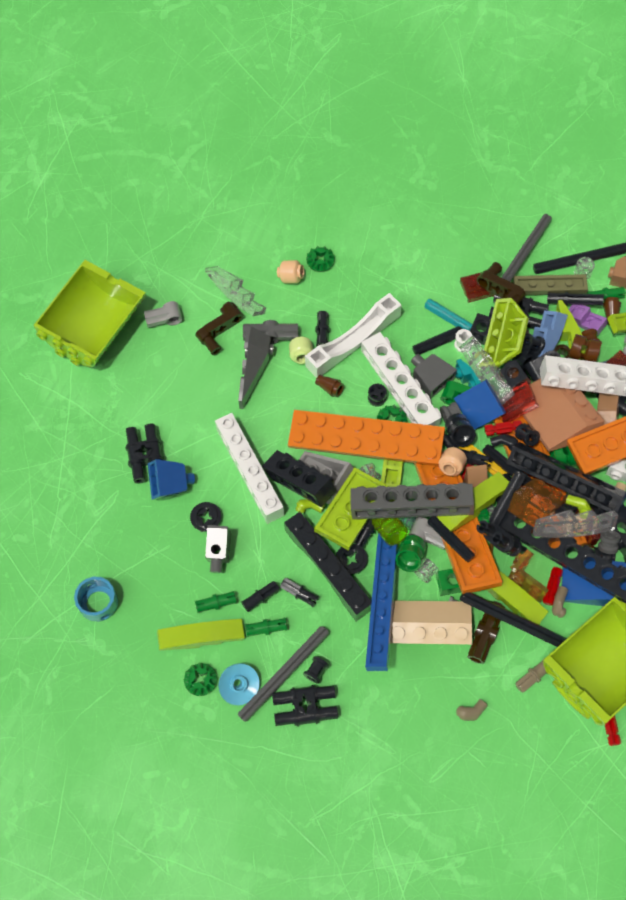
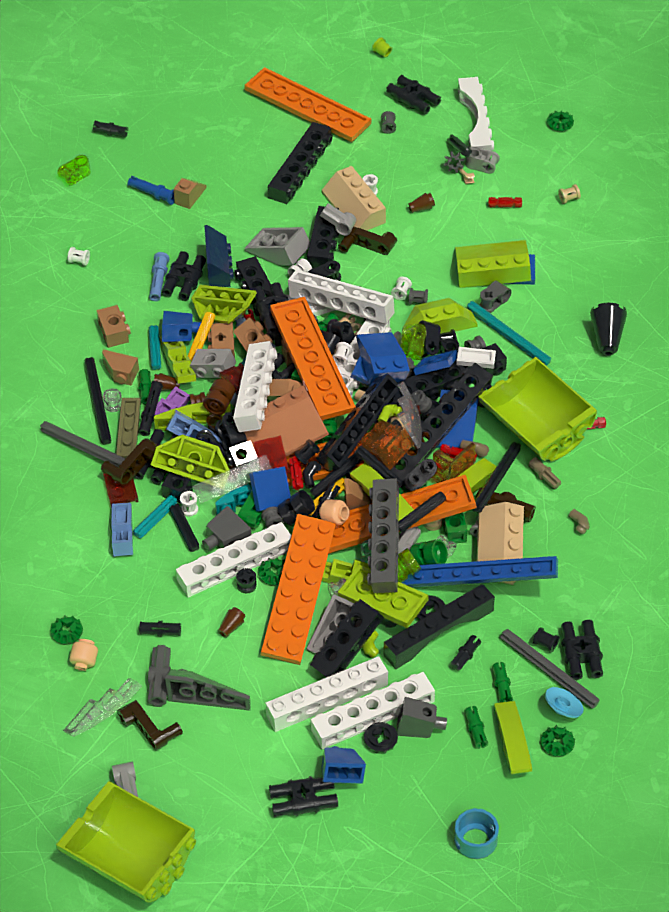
camera: 90 degrees left, 15 degrees down
(253, 551) = (384, 711): none -> white brick
(260, 596) = (470, 687): black axle -> none
(299, 348) = (186, 646): yellowish green head -> none
(329, 354) = (193, 616): white arch -> none
(430, 288) = (122, 529): none -> medium blue slope

